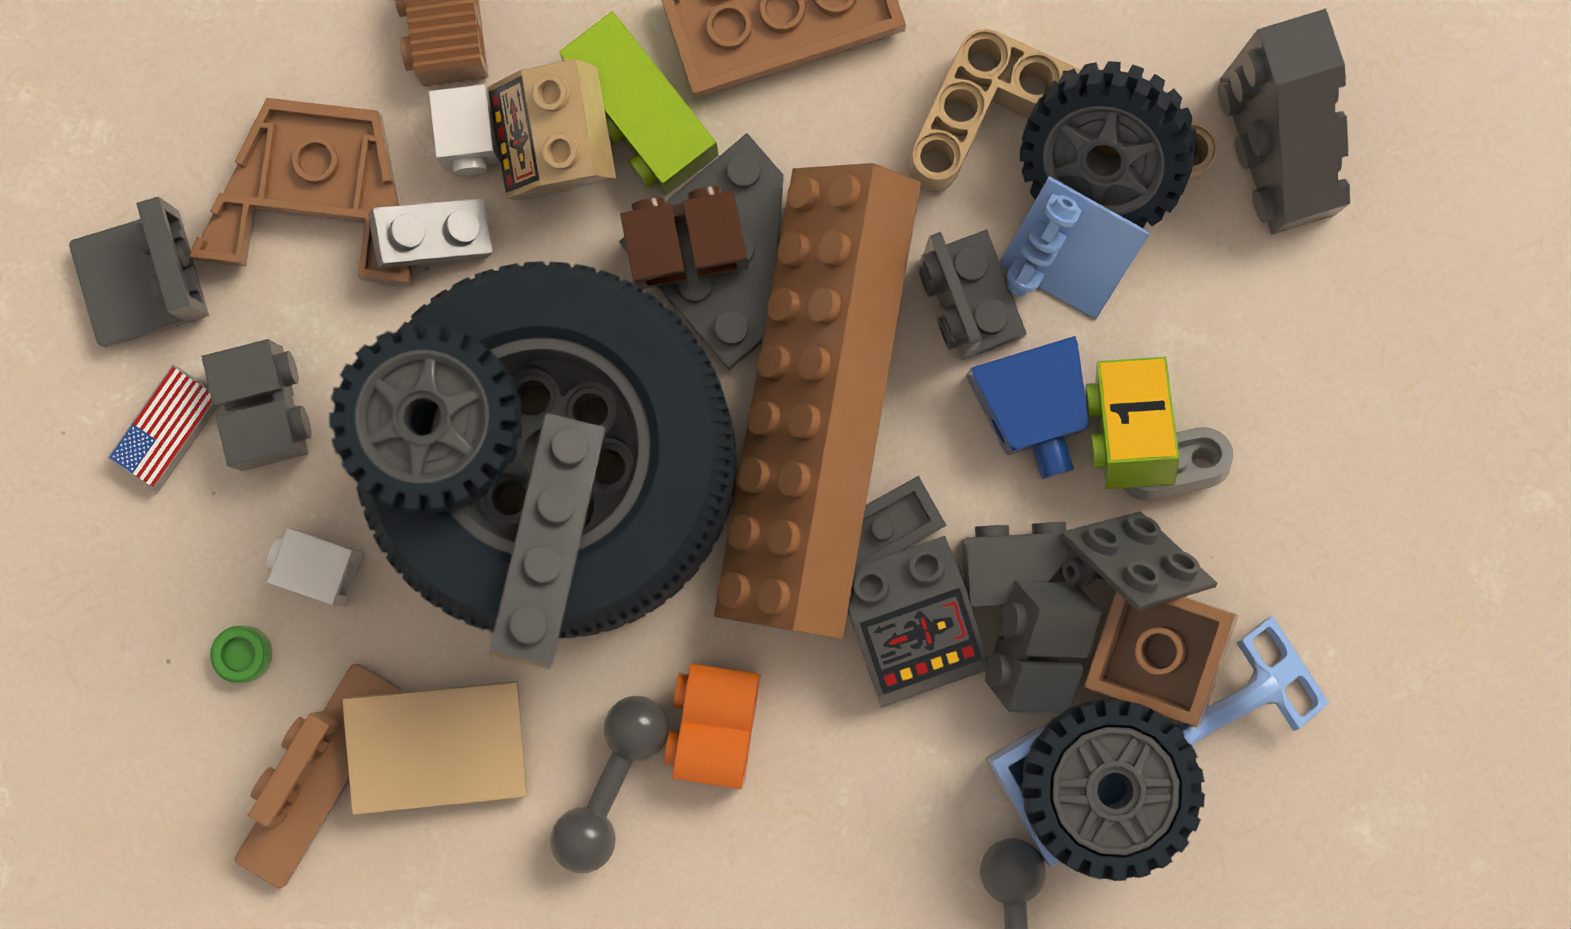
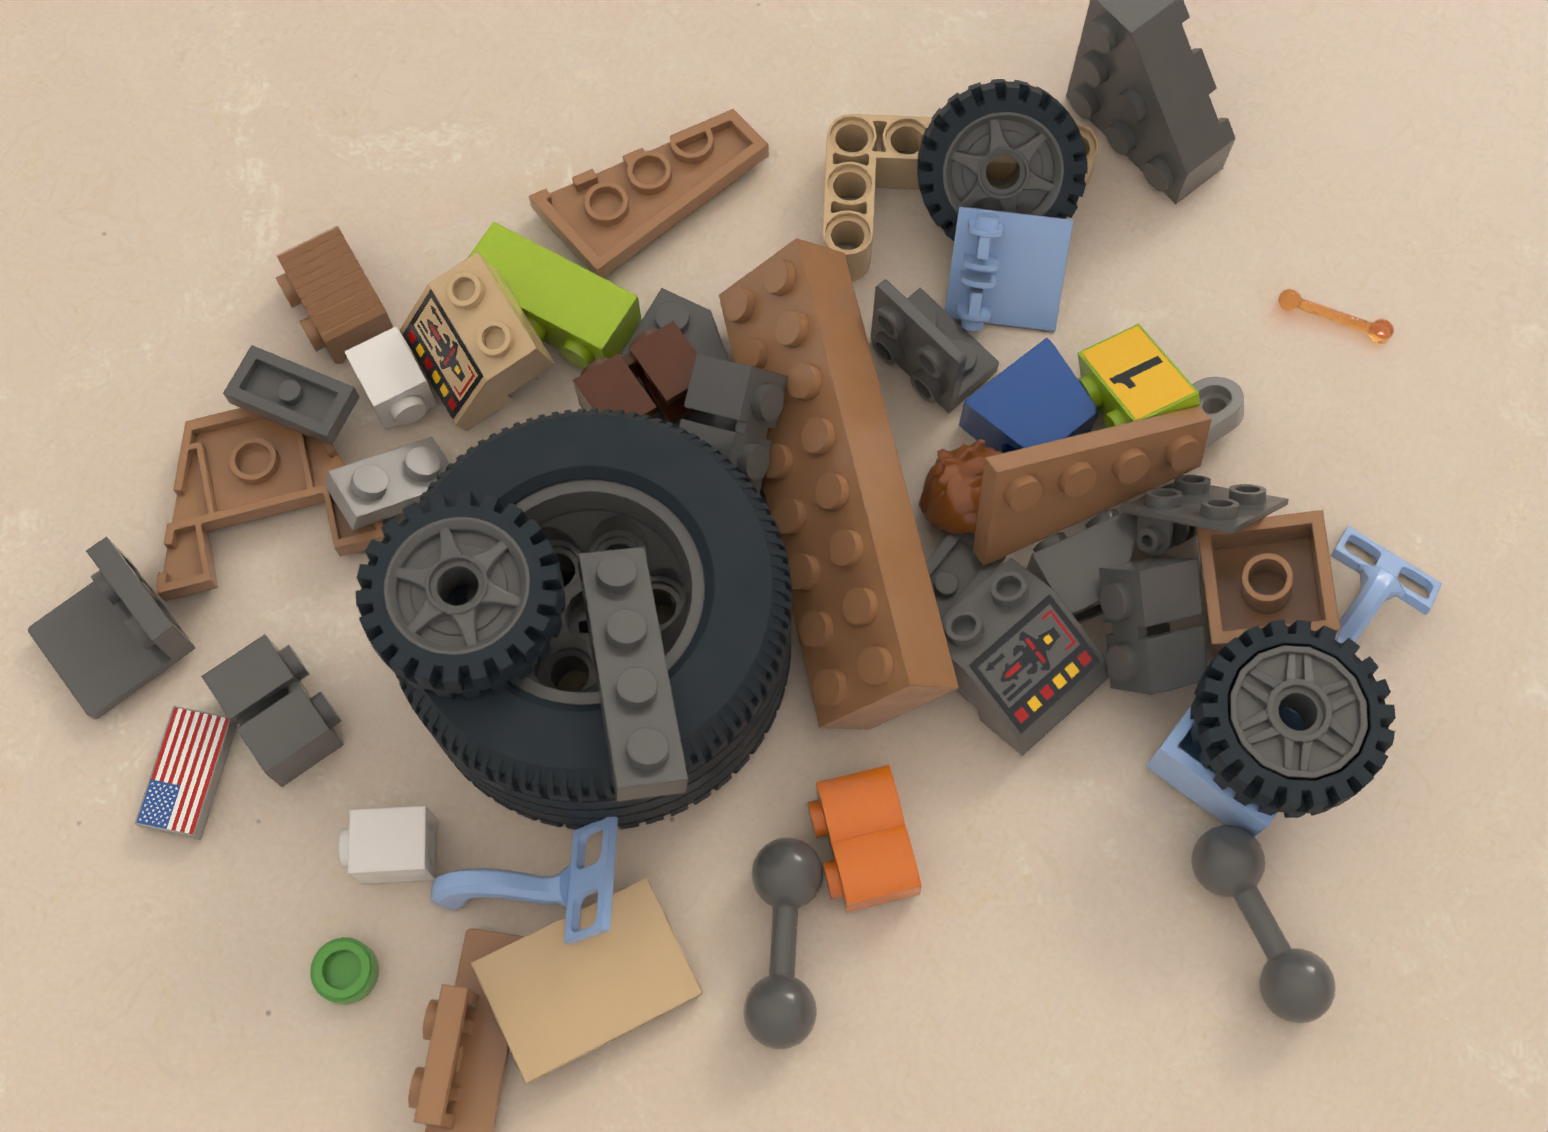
camera: 25 degrees left, 15 degrees down
(366, 116) = (291, 395): none -> dark grey plate
(446, 667) = (565, 888): none -> light blue piece
(760, 301) = (742, 394): none -> dark grey piece
(948, 455) = (954, 488): none -> dark orange hair
(1027, 489) = (1074, 478): none -> medium nougat wing
(1396, 442) = (1378, 332): none -> clear orange hinge

